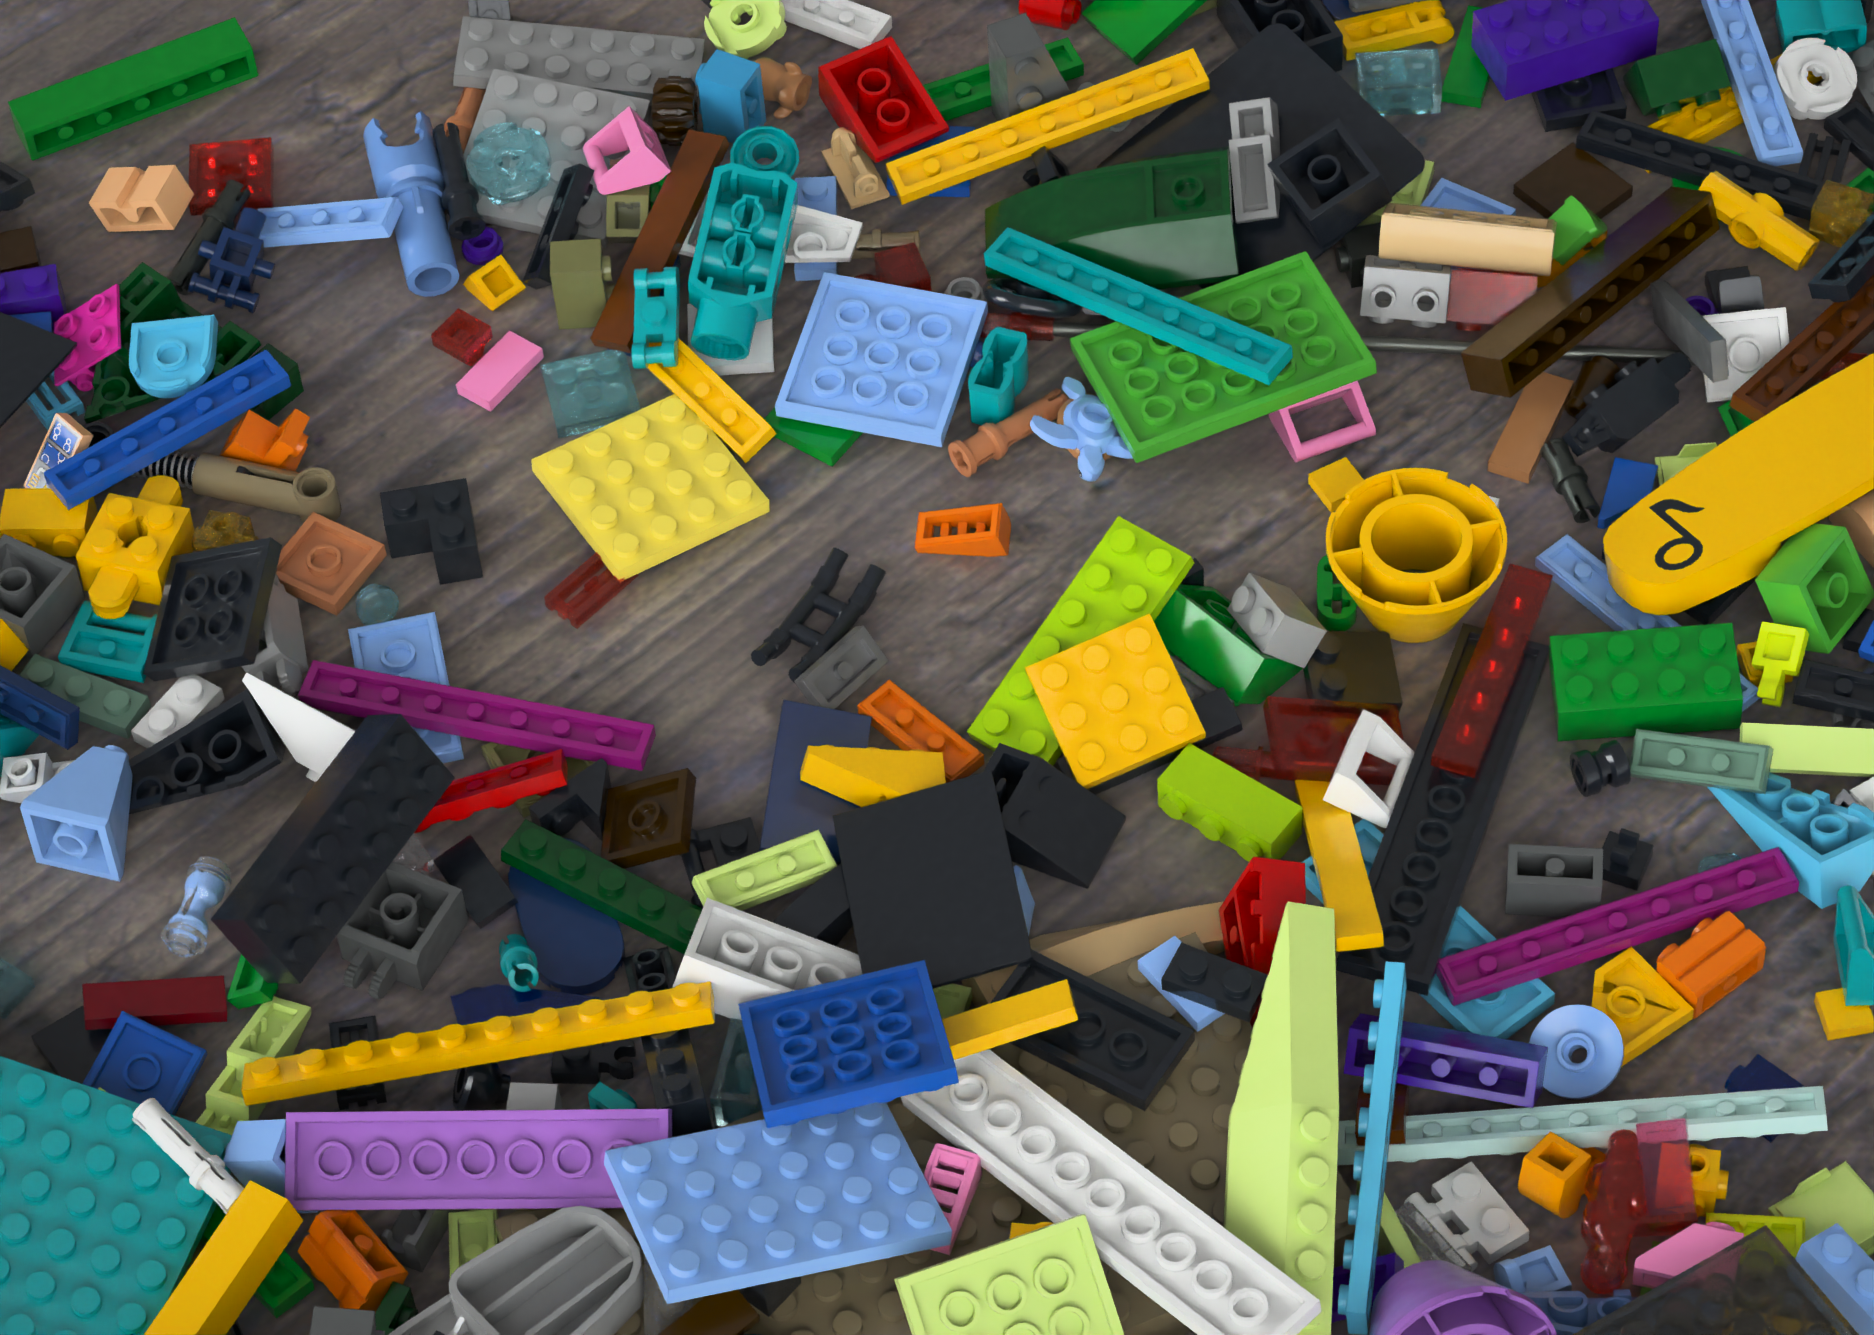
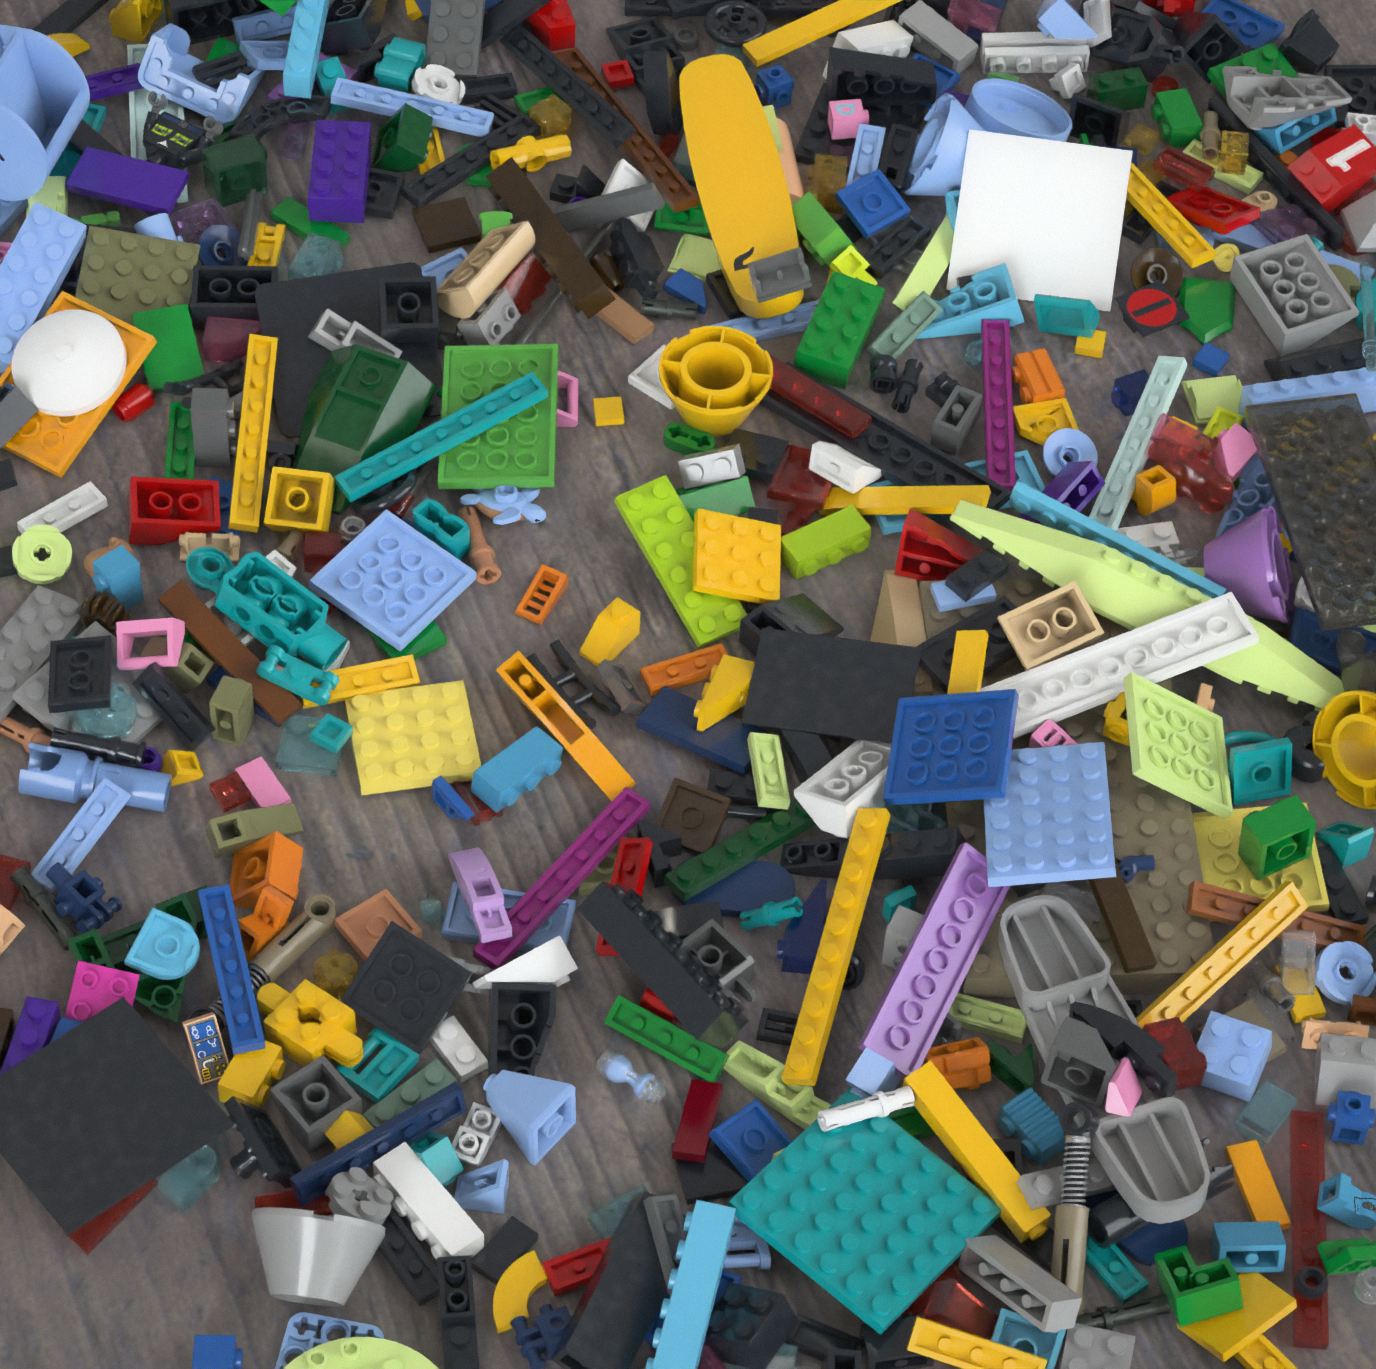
camera: 75 degrees left, 0 degrees up
(356, 424) = (265, 863): none -> orange slope
(400, 624) = (481, 893): none -> lavender slope
(415, 379) = (242, 828): none -> olive slope
(436, 521) = (390, 849): black brick -> none
(538, 110) = (80, 674): none -> black tile
(555, 557) = (449, 800): none -> blue tile
(592, 392) = (331, 733): none -> teal plate
(636, 604) = (517, 769): none -> dark azure brick
(738, 621) = (564, 725): none -> light orange slope
(931, 625) = (611, 632): none -> yellow slope
(956, 216) = (299, 500): none -> yellow brick
(1101, 47) = (216, 378): none -> black piece
(1142, 1096) = (1051, 626): none -> tan slope
(1209, 36) = (227, 338): none -> clear pink slope
(1533, 1272) = (1198, 532): light blue tile -> none
(1599, 806) = (907, 385): none -> black pin
(1650, 550) = (779, 275): none -> dark grey hinge

